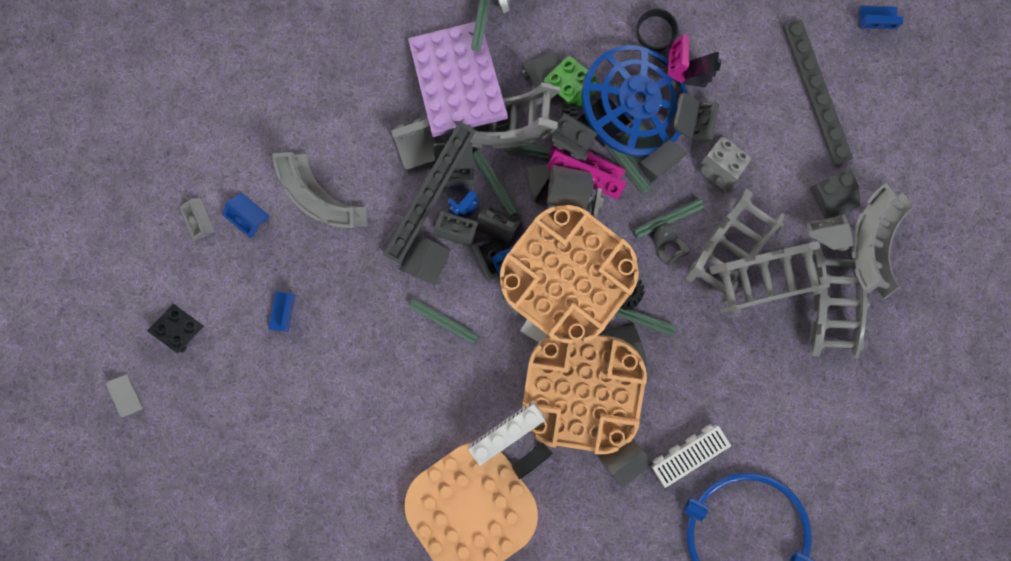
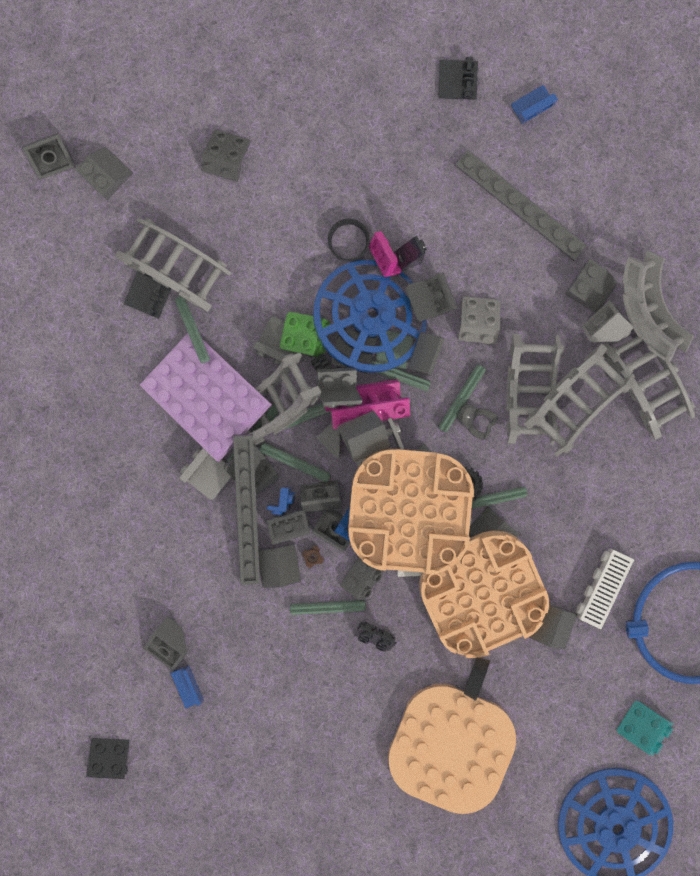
camera: 30 degrees left, 5 degrees up
(124, 396) = (102, 840): light grey slope -> none
(196, 218) = (62, 655): light grey slope -> none
(244, 214) = (101, 625): blue panel -> none
(289, 263) = (167, 643): none -> dark grey slope
(310, 197) = (148, 577): light grey fence -> none
(457, 265) = (307, 555): none -> reddish brown plate
(470, 377) = (366, 635): none -> black hinge
(489, 314) = (361, 579): none -> dark grey bracket
(506, 432) = (441, 670): white brick -> none

